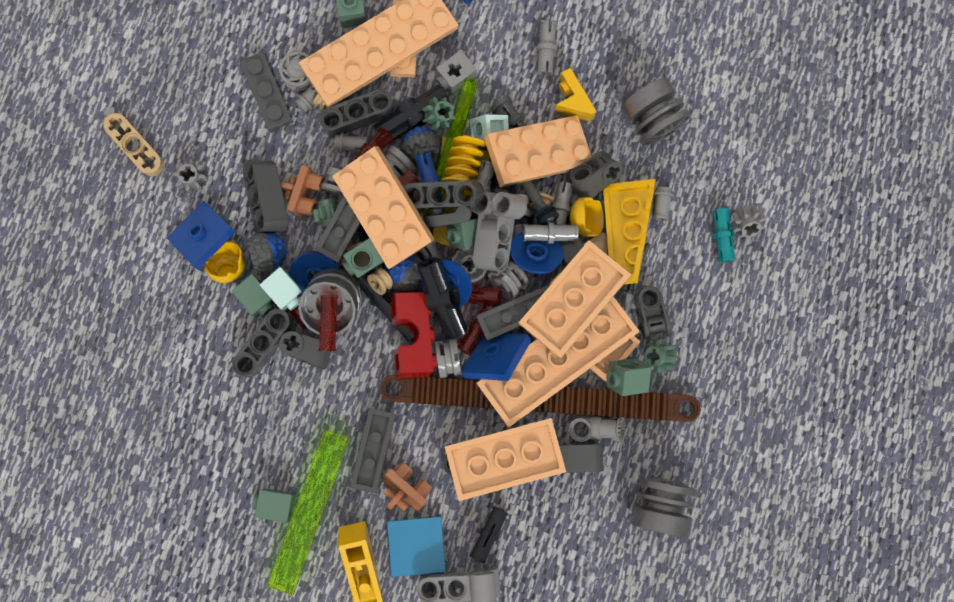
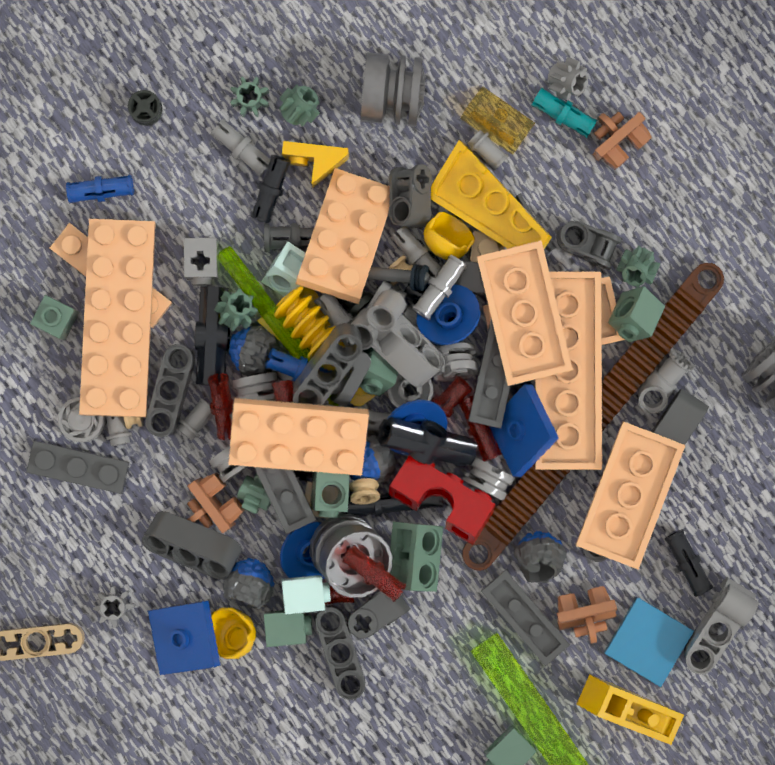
camera: 50 degrees left, 5 degrees up
(361, 346) = (416, 555): none -> sand green brick
(420, 429) = (540, 556): none -> dark grey piece
(534, 83) = (270, 188): none -> black pin
(578, 34) = (246, 88): none -> sand green gear
(600, 63) = (299, 105): none -> sand green gear
(687, 200) = (502, 122): none -> clear yellow slope
(746, 286) = (633, 130): none -> nougat hips

